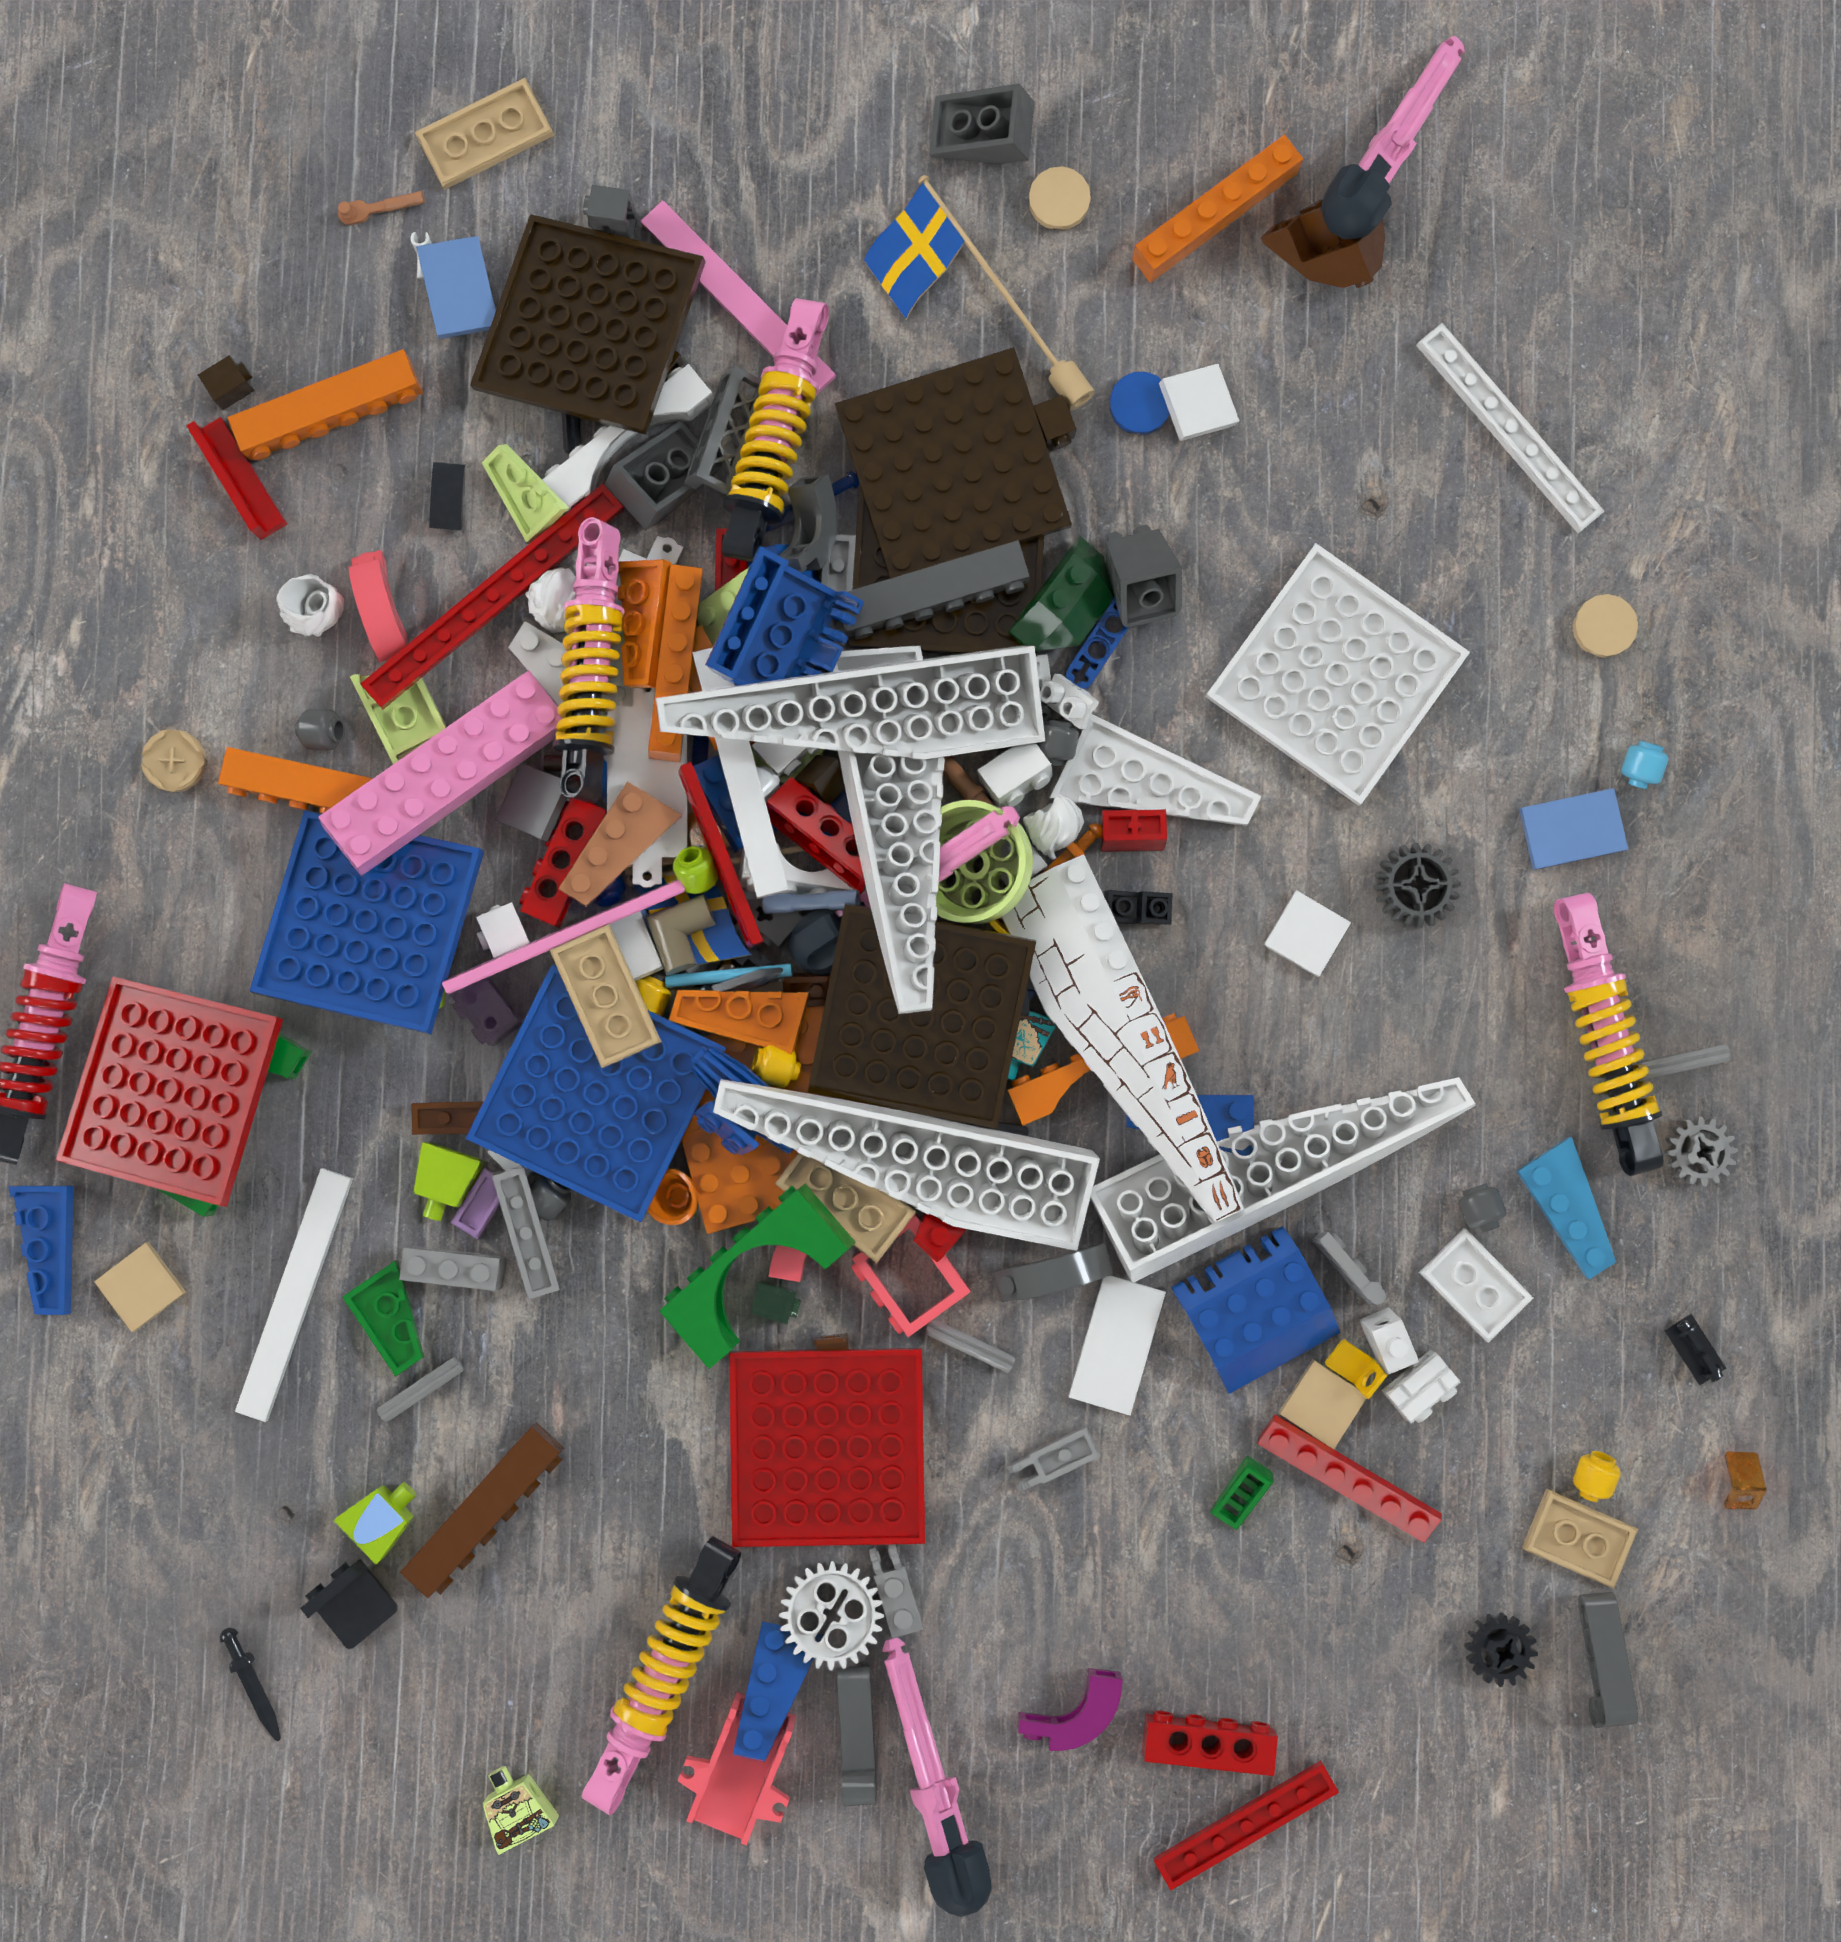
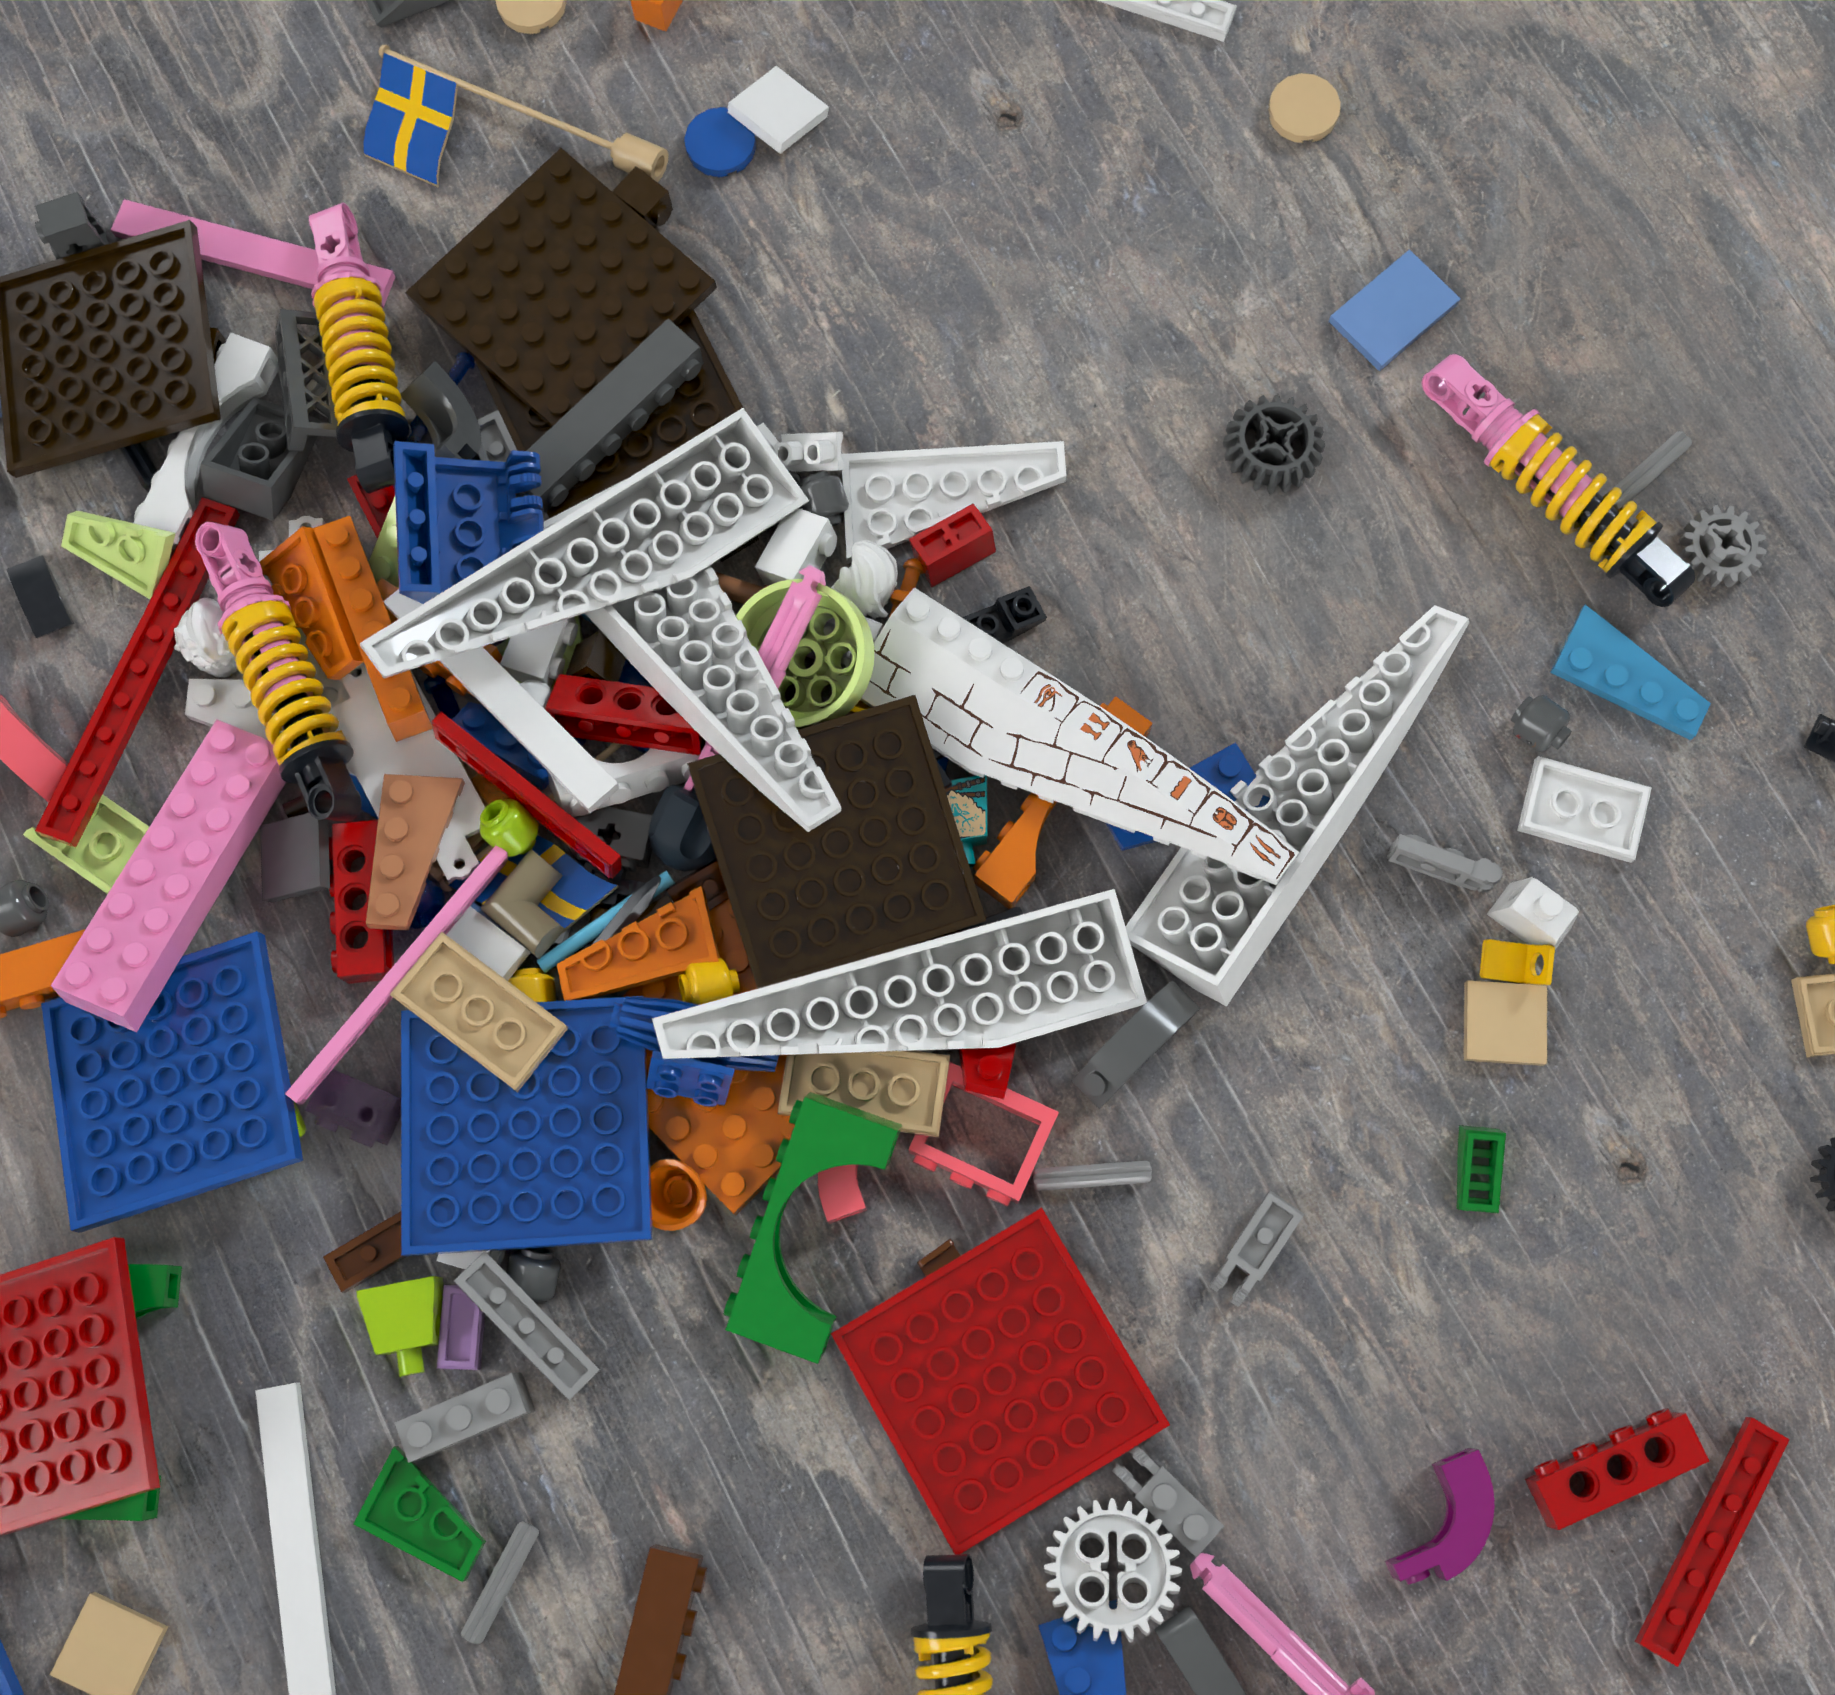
camera: 30 degrees left, 10 degrees down
(501, 930) = (325, 1008): white head -> none
(775, 1302) = (851, 1248): clear green brick -> none
(790, 902) = (631, 803): sand blue piece -> none
(1067, 601) = (754, 359): dark green wedge -> none
(1098, 635) = (816, 377): blue beam -> none
(1117, 1344) = (1249, 1084): white tile -> none
(1143, 576) = (819, 293): dark grey hips -> none
(1258, 1310) = (1377, 960): blue slope -> none
(1307, 933) = (1192, 552): white tile -> none
(1337, 674) = (1069, 289): white plate -> none
(1349, 1478) = (1583, 1085): plate -> none
(1422, 1387) = (1597, 944): white brick -> none
(1644, 764) = (1425, 210): medium azure head -> none

